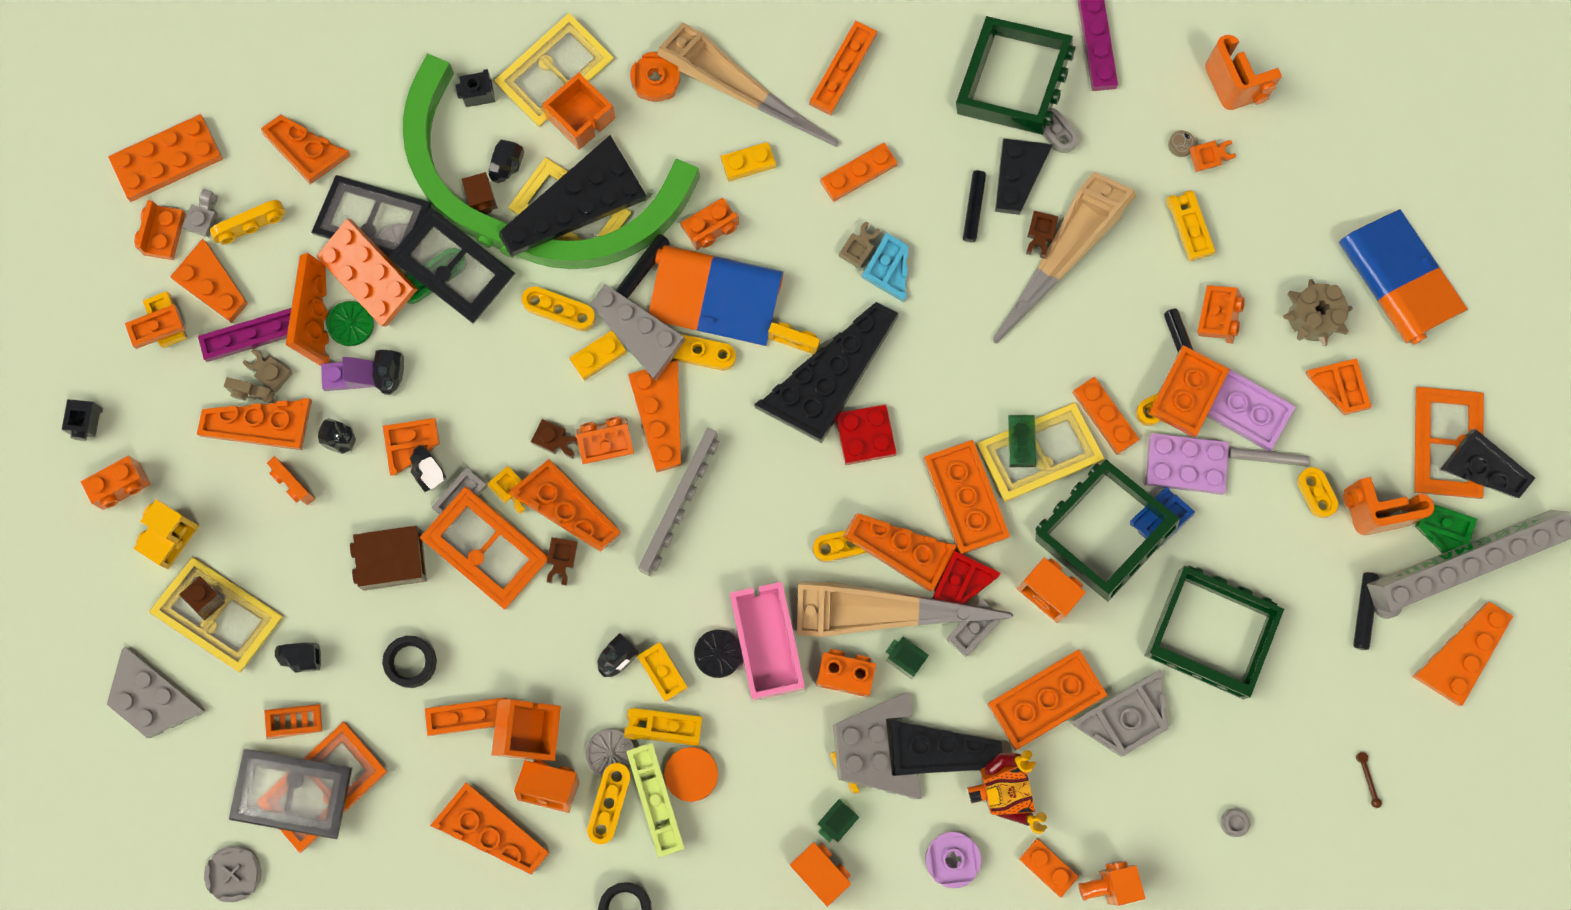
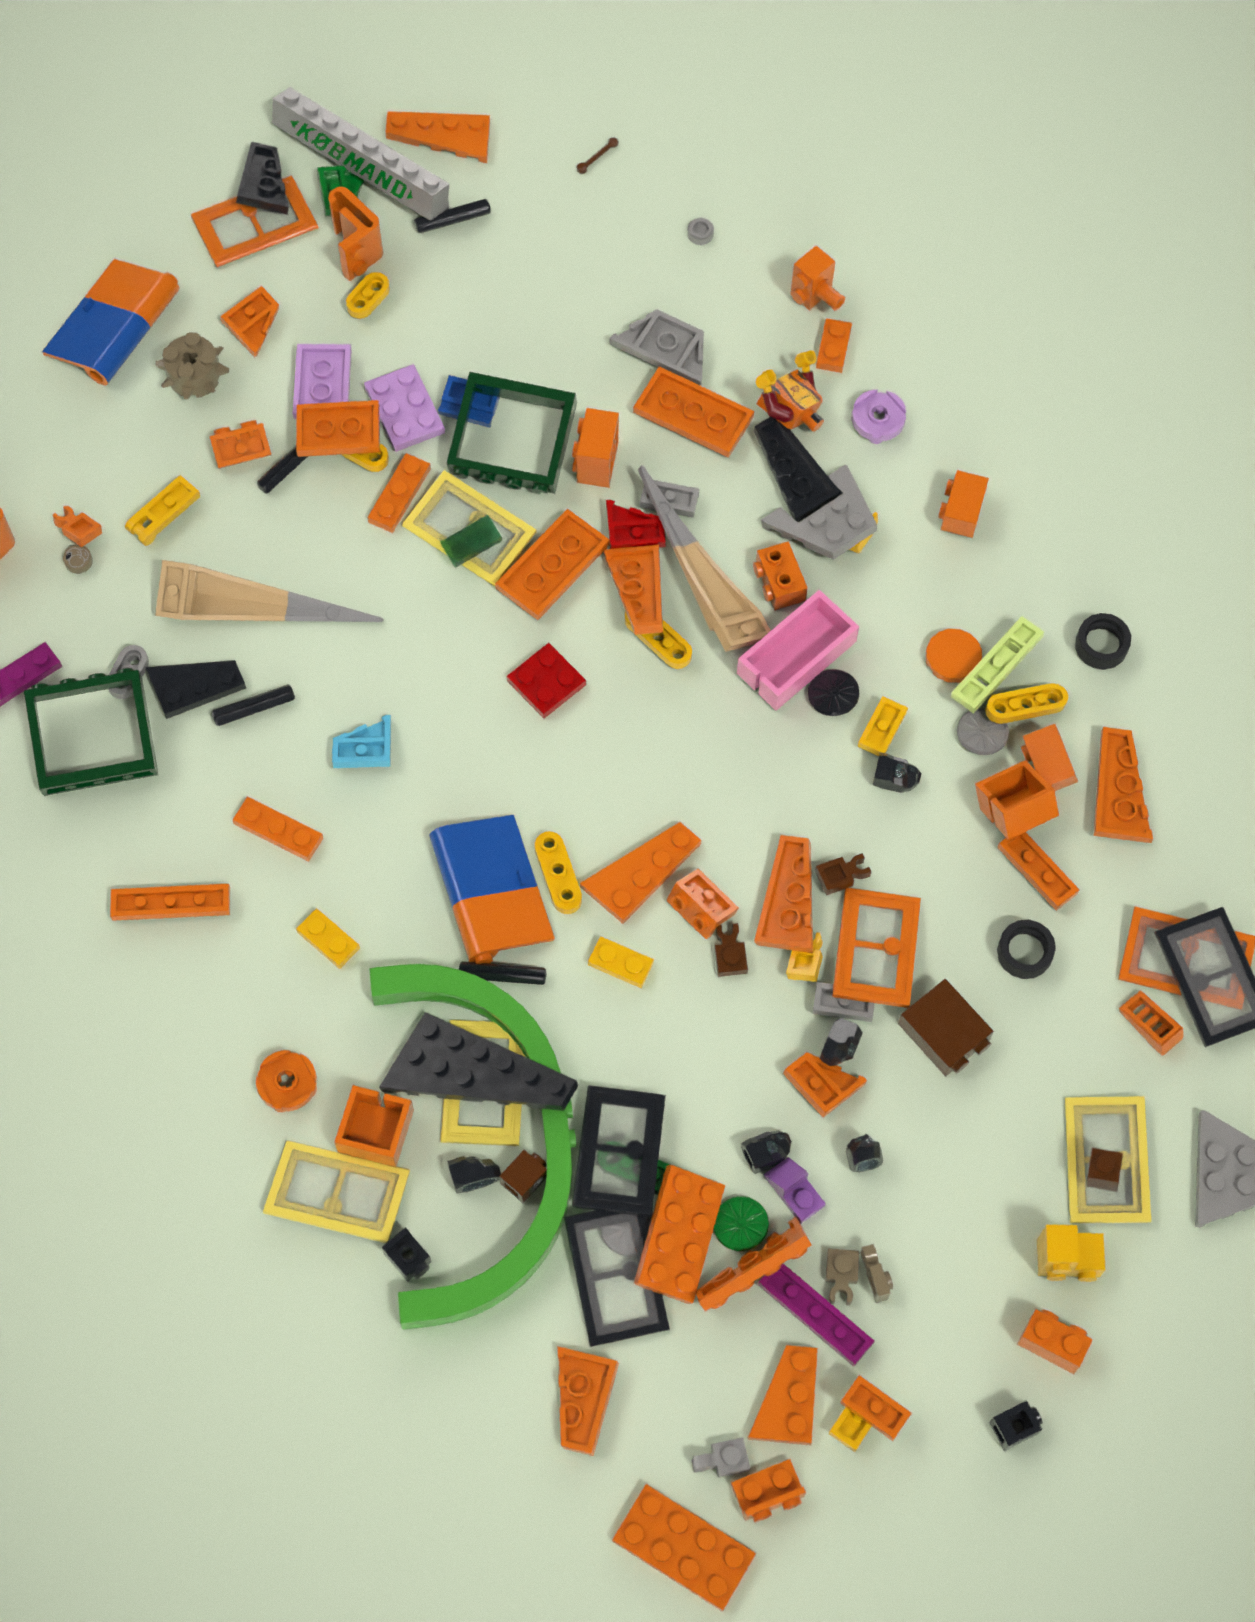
camera: 120 degrees left, 10 degrees down
(247, 222) = (702, 1398): yellow plate -> none
(272, 424) = (899, 1239): orange wing -> none
(283, 474) = (935, 1183): orange plate -> none
(299, 656) = (1091, 1051): black rock -> none
(550, 301) = (597, 1013): yellow plate -> none
(643, 334) = (574, 929): light grey wing -> none
(663, 726) = (929, 696): yellow plate -> none
(675, 512) = (729, 799): light grey plate -> none
(707, 63) = (244, 1034): tan plate -> none
(710, 224) = (418, 933): orange bracket -> none
(784, 334) = (488, 778): yellow plate -> none
(825, 381) = (522, 739): black wing -> none
(837, 822) = (911, 516): clear green brick -> none
(858, 247) = (362, 784): dark tan plate -> none
(906, 657) = (732, 535): clear green brick -> none
(1041, 231) = (244, 632): reddish brown plate -> none
(1203, 673) = (544, 274): dark green window -> none
(1268, 457) = (356, 347): light grey bar -> none

